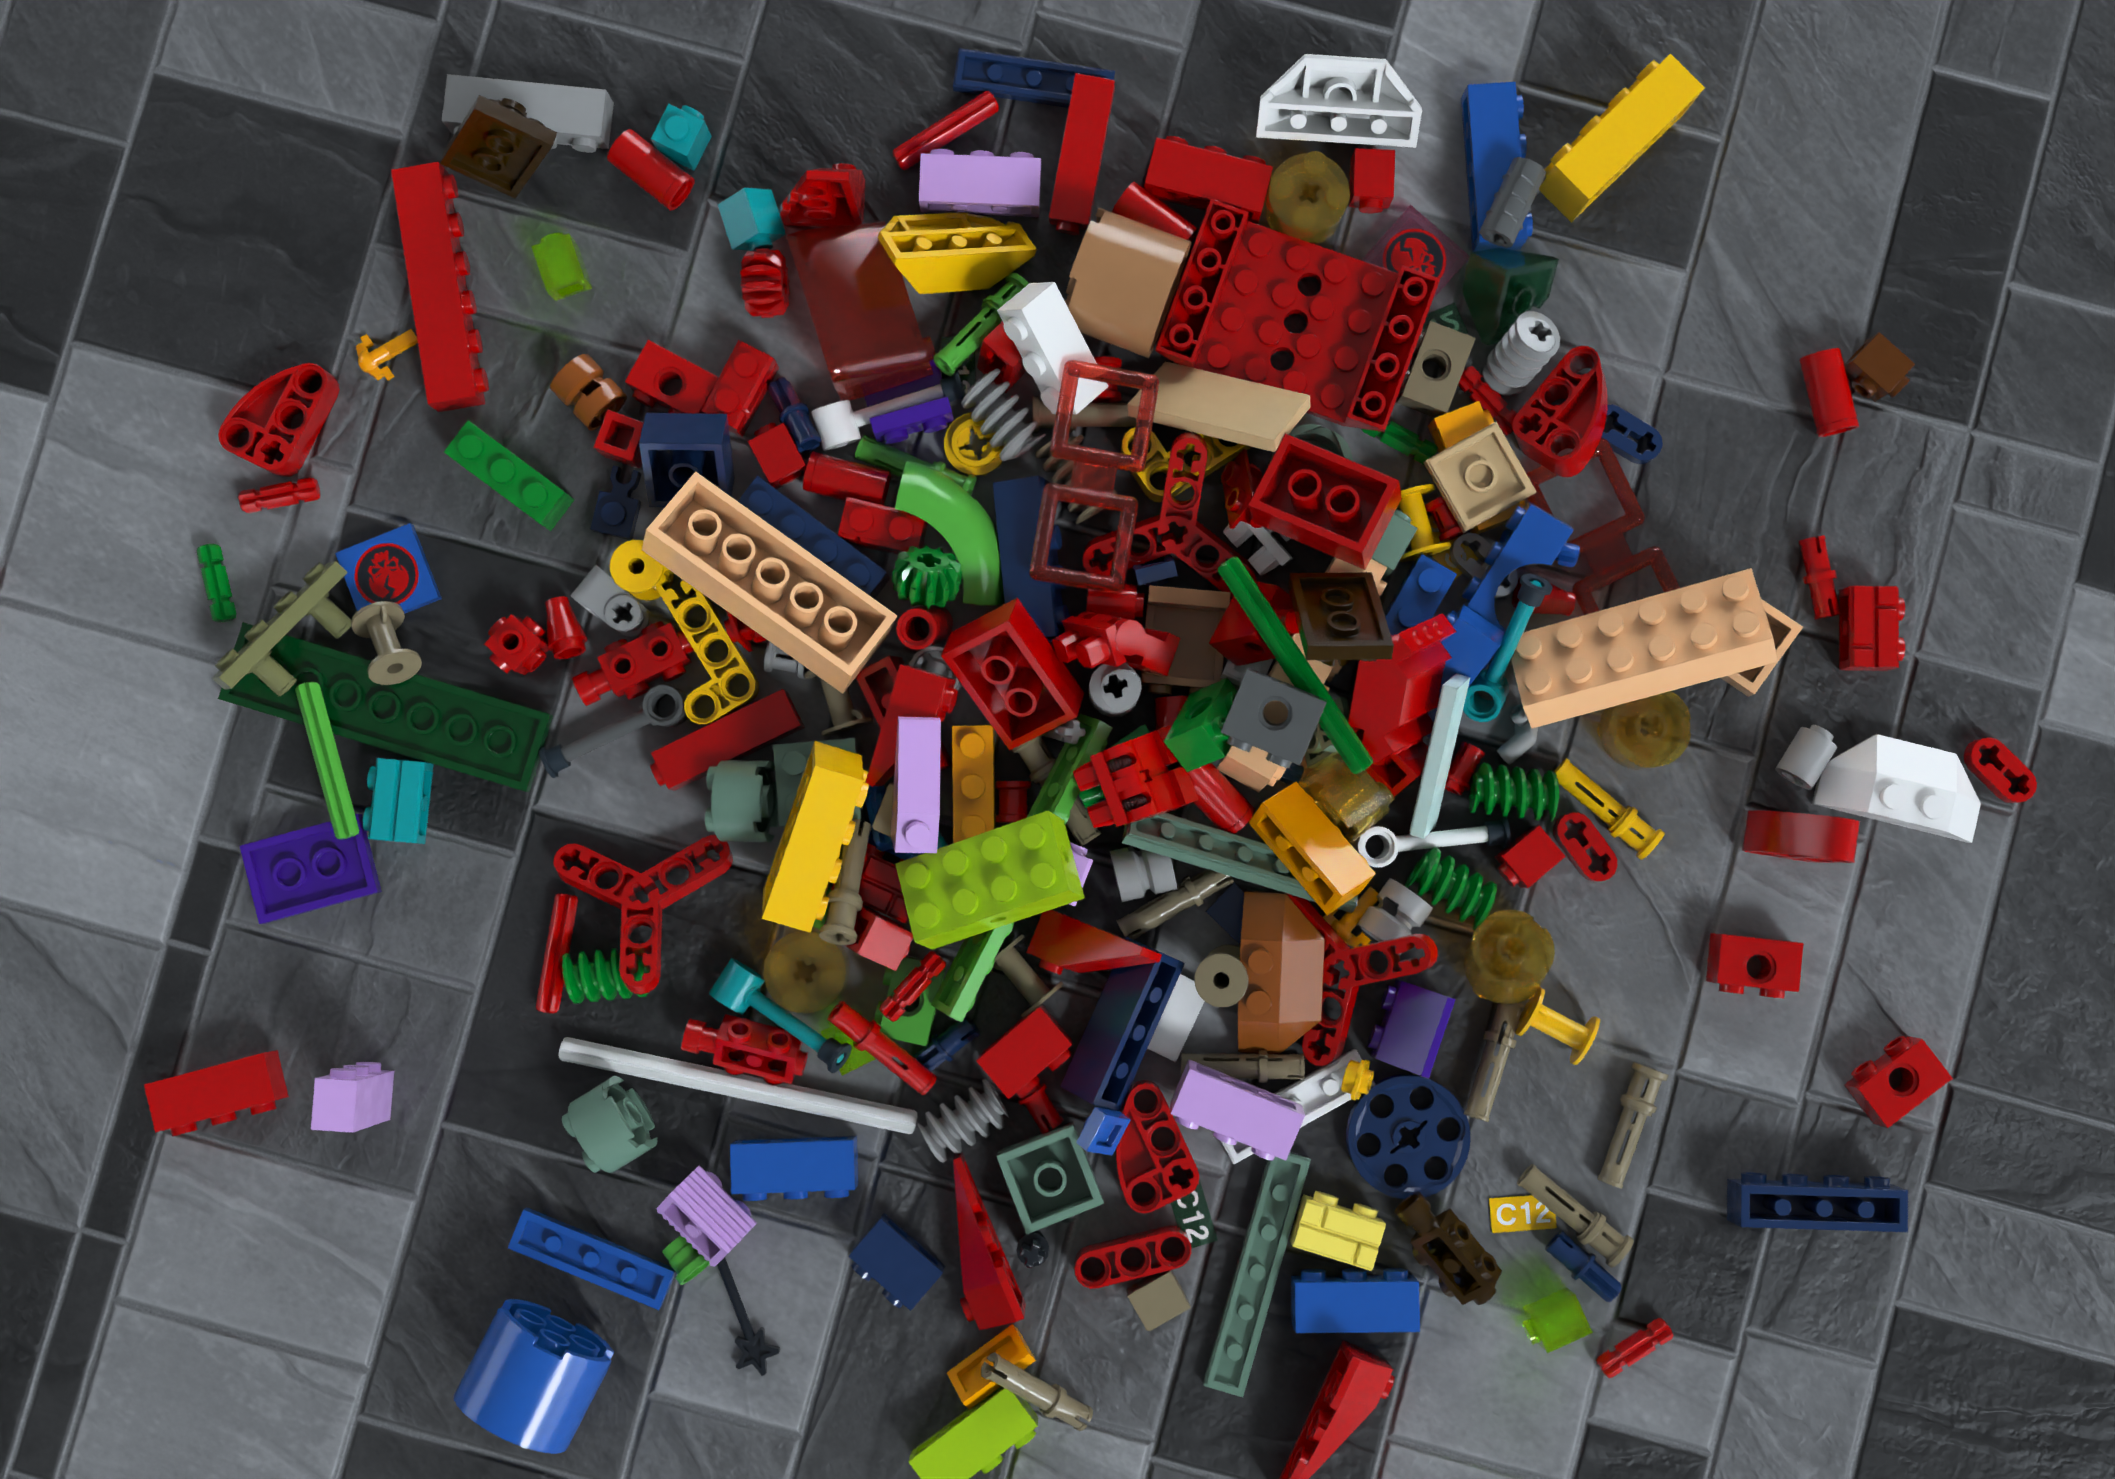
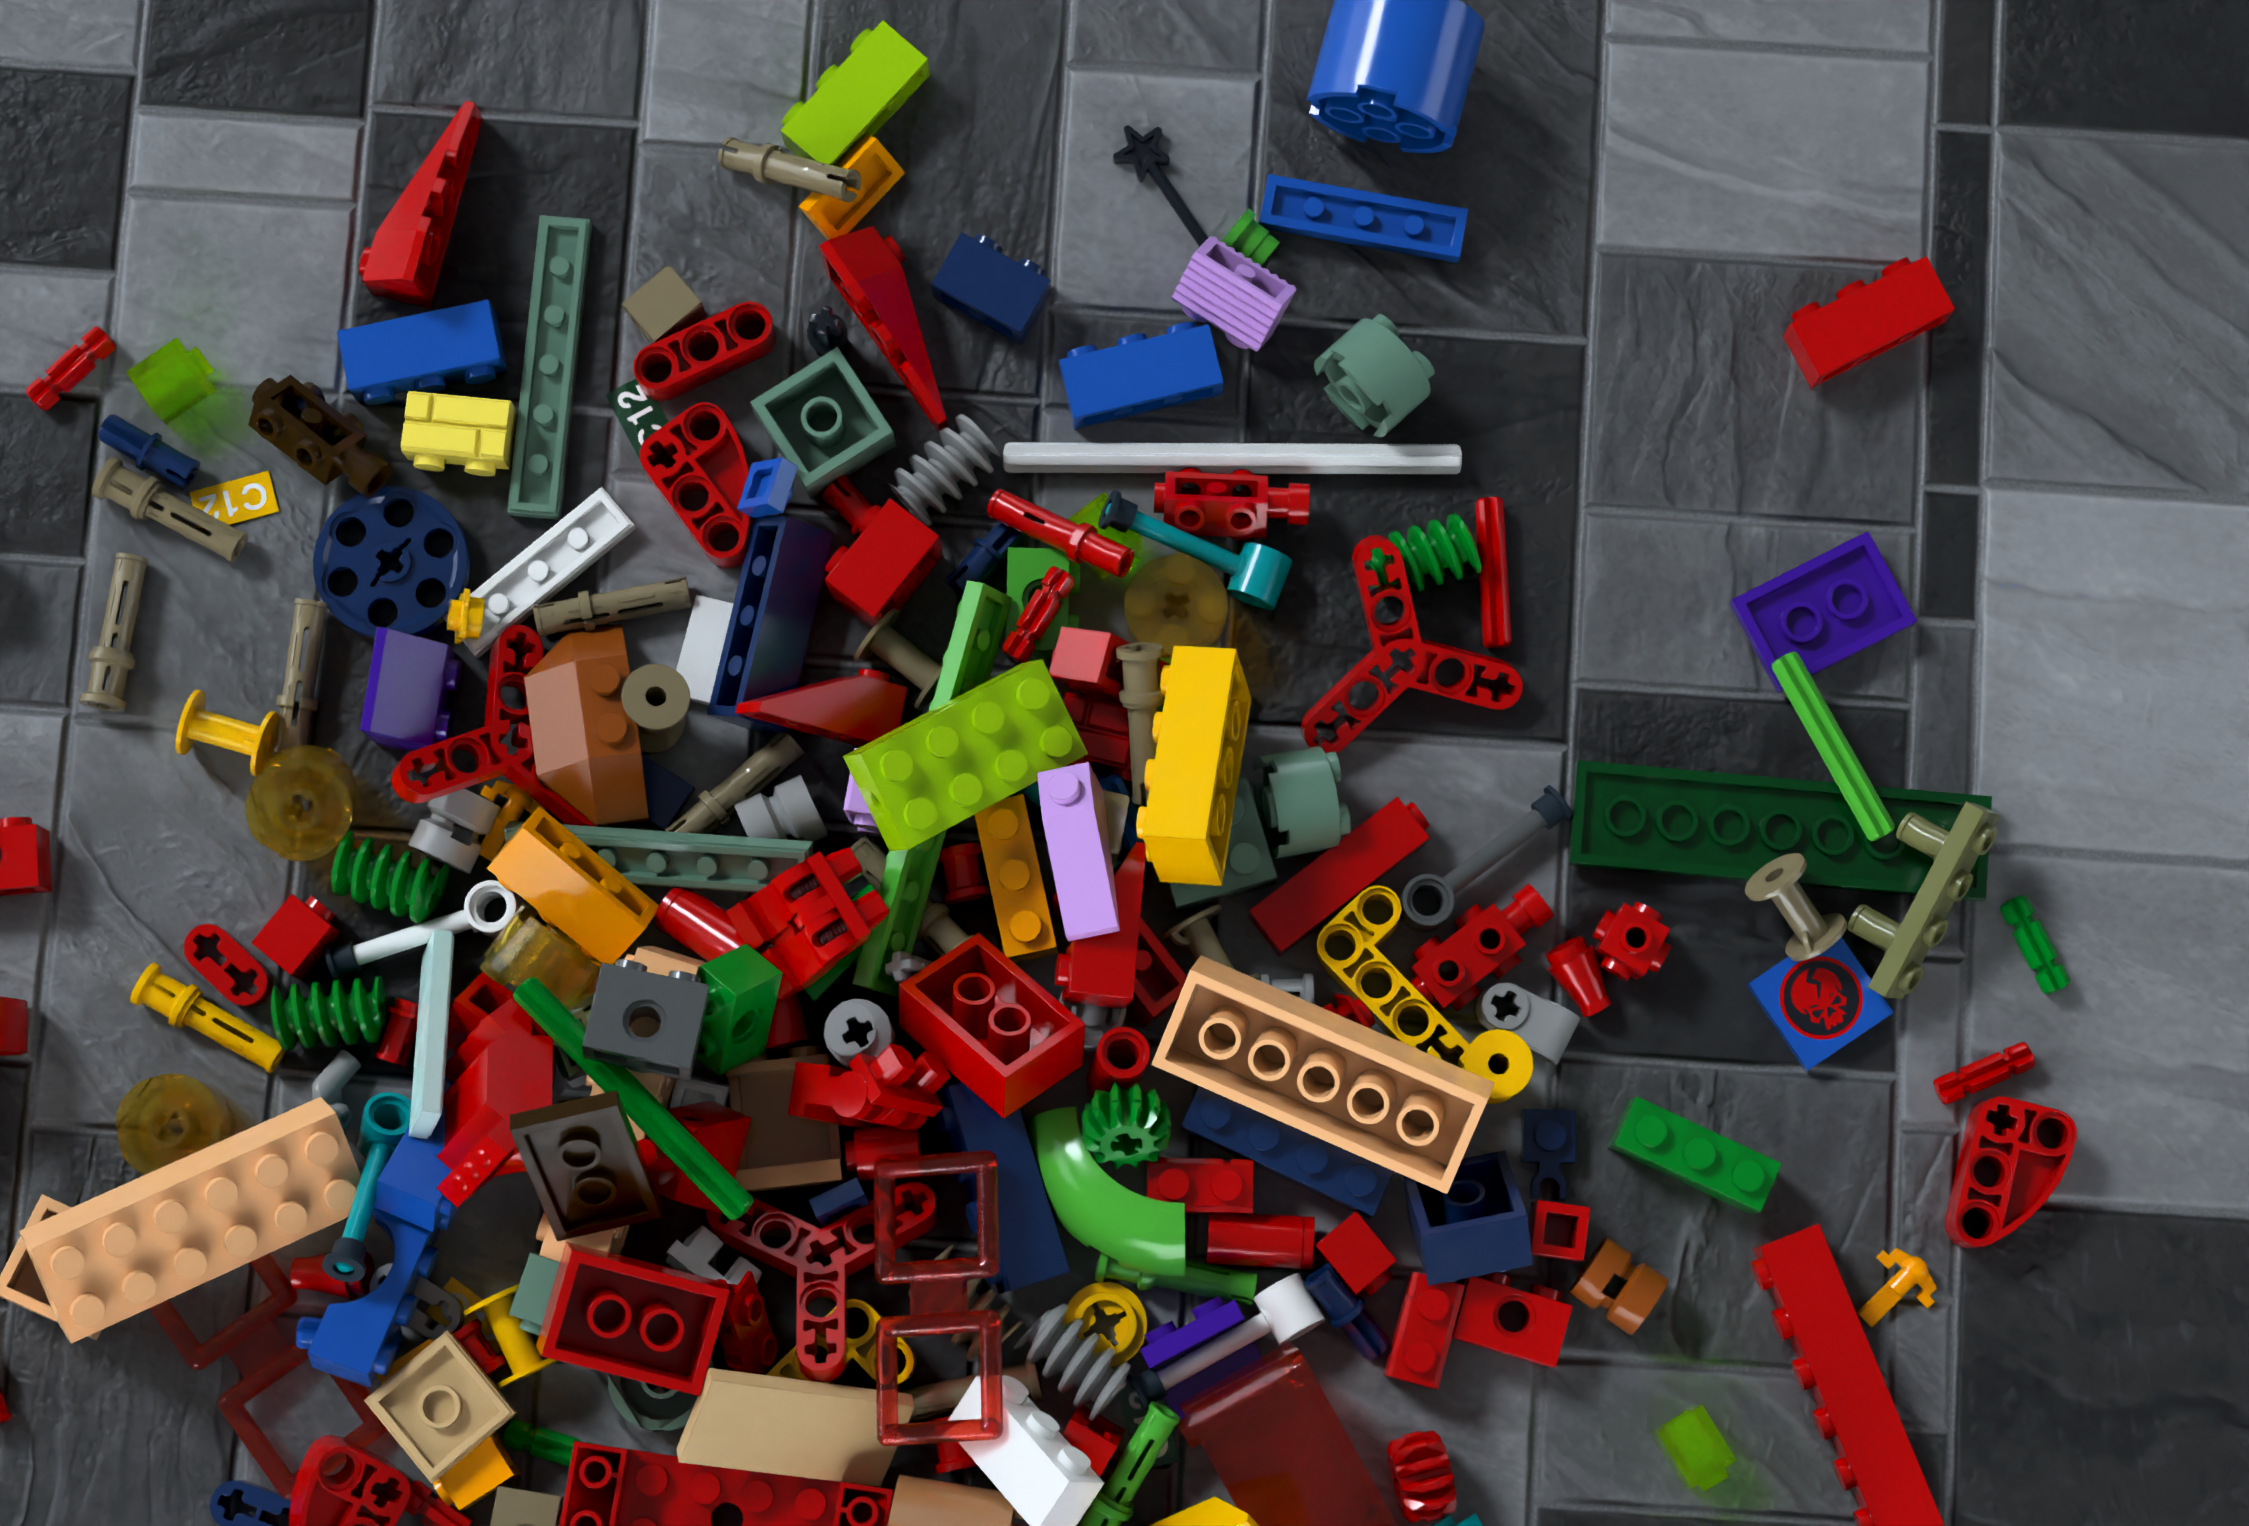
camera: 165 degrees right, 5 degrees down
(352, 1098) = (1692, 340): lavender brick -> none
(398, 800) = (1733, 716): teal brick -> none
(1236, 1111) = (608, 547): lavender brick -> none
(1418, 595) = (497, 1231): blue brick -> none

